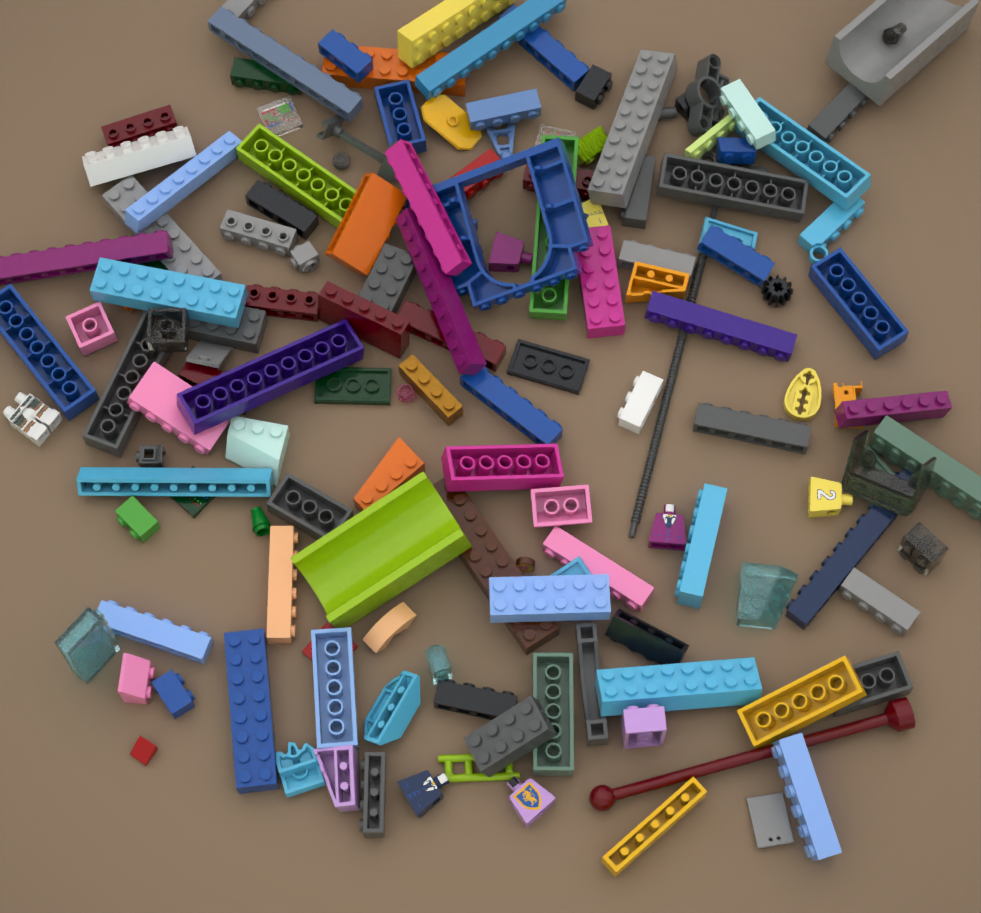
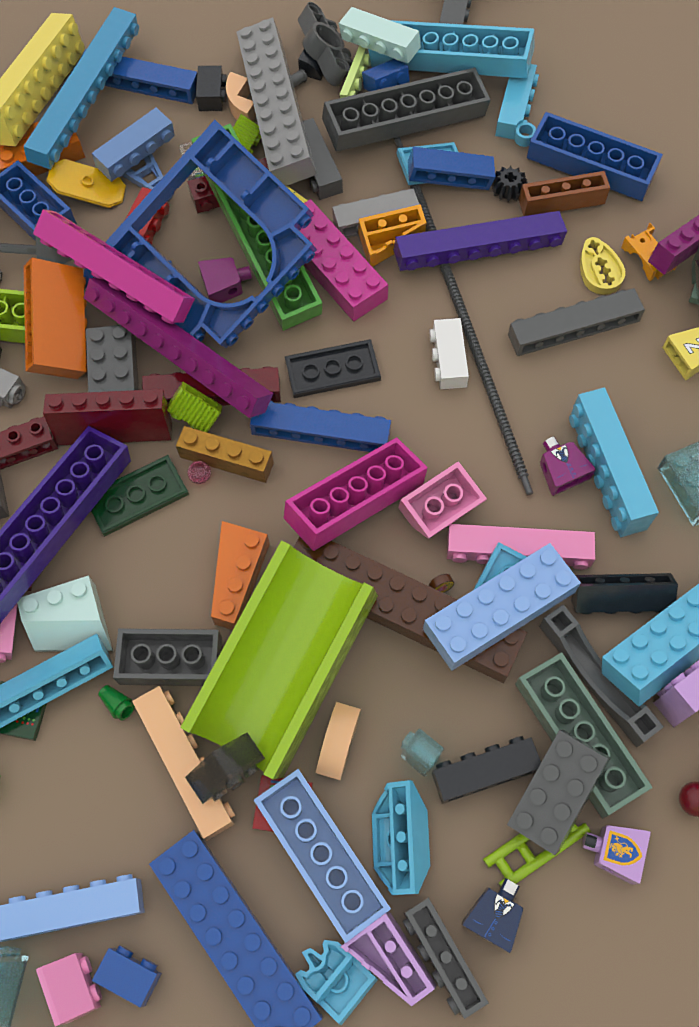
camera: 30 degrees left, 0 degrees up
(304, 600) = (225, 769): none -> clear smoke brick
(427, 344) = (194, 408): none -> lime brick
(610, 103) = (237, 93): none -> light nougat brick
(811, 322) = (564, 193): none -> dark orange brick

